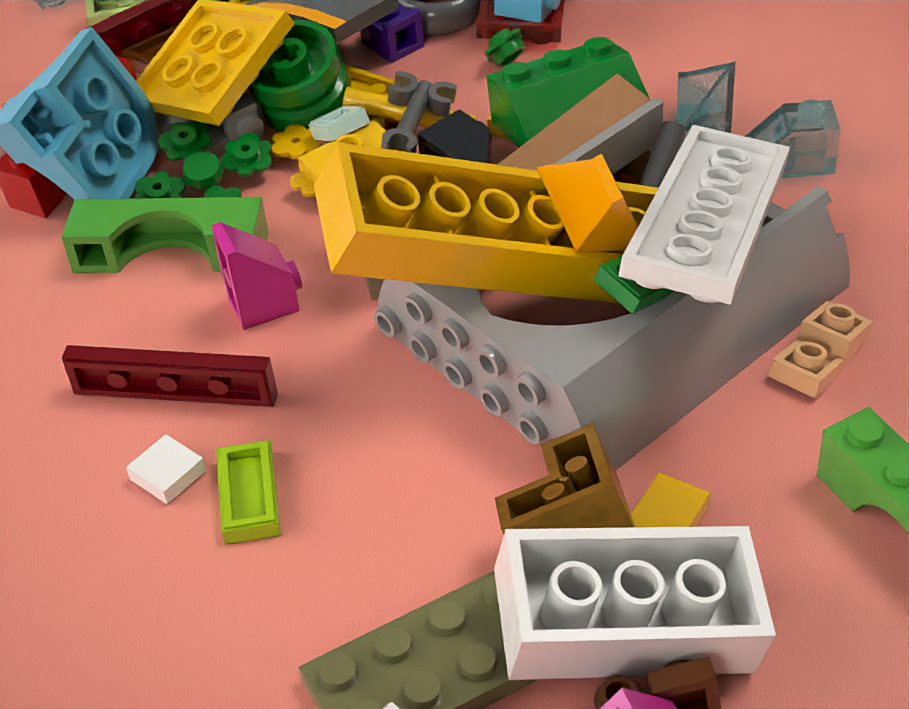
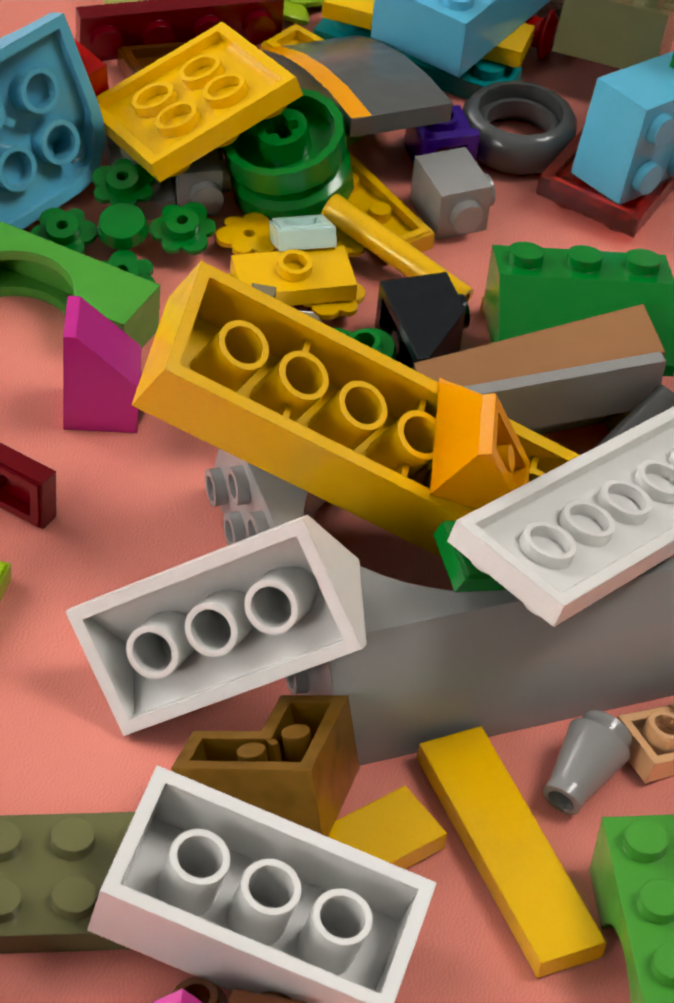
camera: 15 degrees right, 0 degrees up
(416, 97) = (405, 239): flat silver bar -> none
(421, 54) = (451, 192): none -> light grey brick
(476, 410) = (223, 623): none -> white slope
(505, 47) = (559, 217): green plate -> none
(760, 486) = (511, 852): none -> yellow tile
(771, 398) = (588, 758): none -> light grey cone

